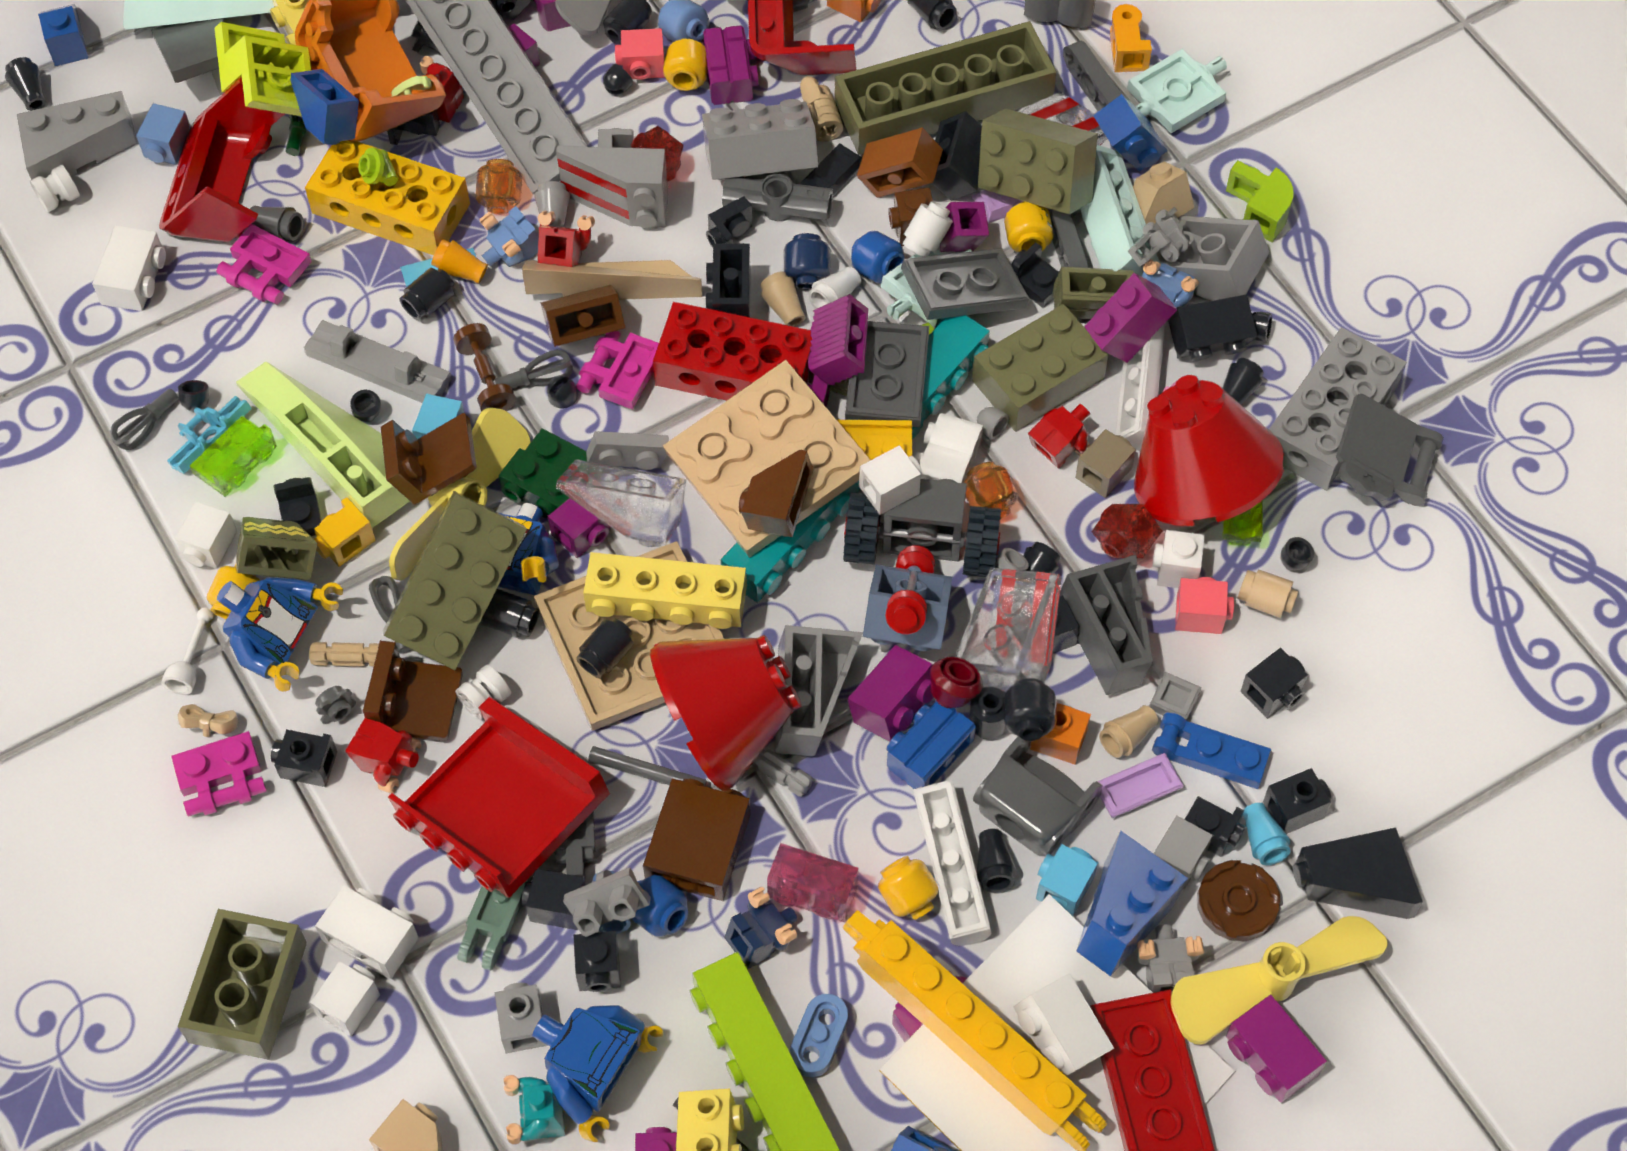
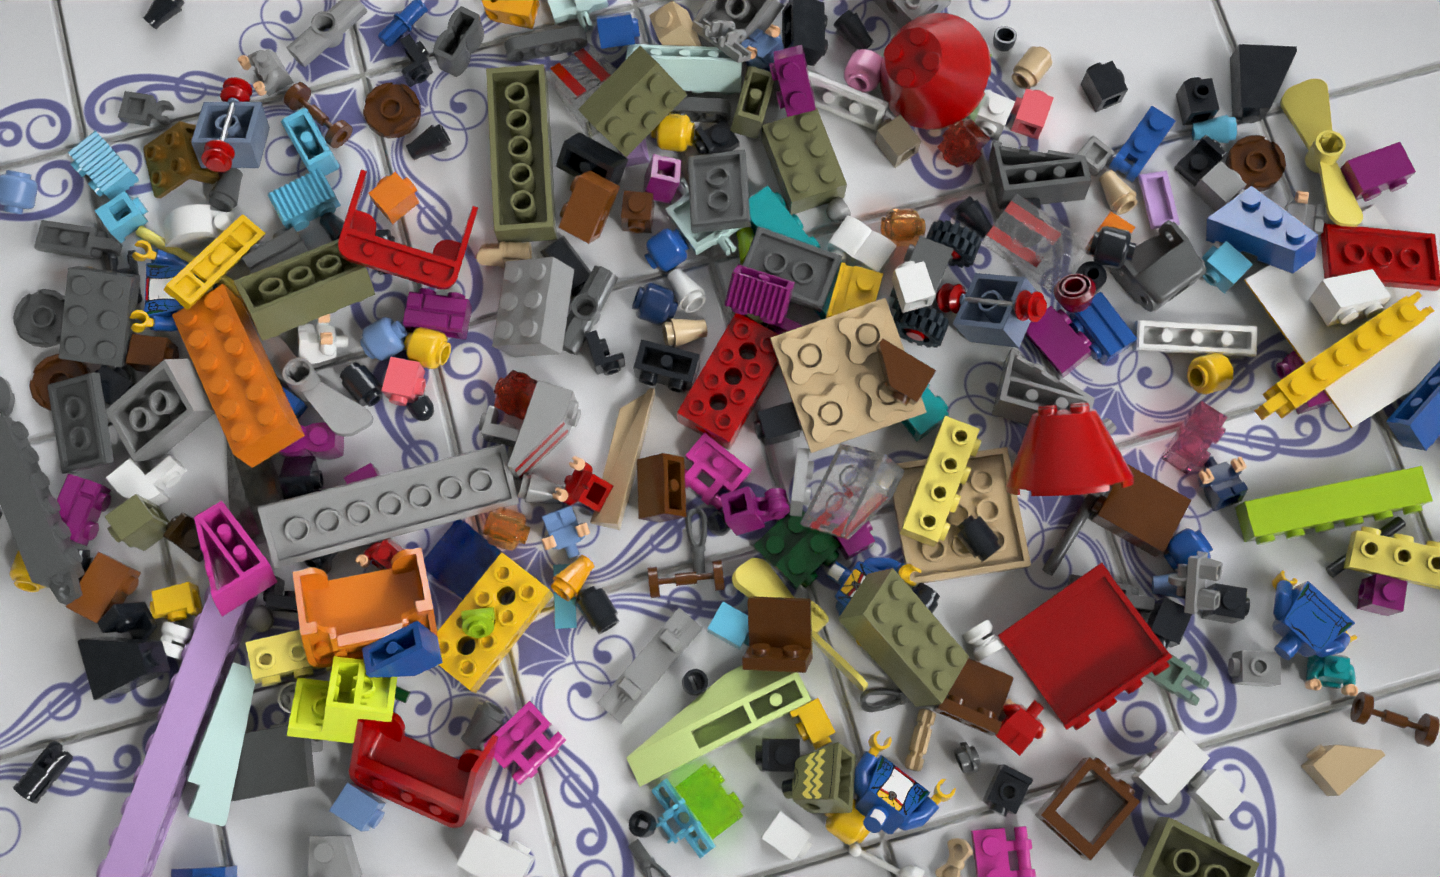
camera: 75 degrees left, 15 degrees up
(268, 829) = (1069, 834): none -> reddish brown window
(411, 84) = (404, 575): yellowish green piece -> none
(458, 151) = (460, 558): none -> clear blue hinge
(577, 405) = (747, 512): none -> magenta brick
(689, 407) = (777, 424): none -> black brick
(818, 1037) = (1304, 463): medium blue plate -> none
(927, 229) = (666, 202): white brick -> none
(995, 864) = (1198, 310): black cone -> none
(1011, 560) = (977, 225): light grey hinge -> none
(1061, 434) = (865, 163): red piece -> none

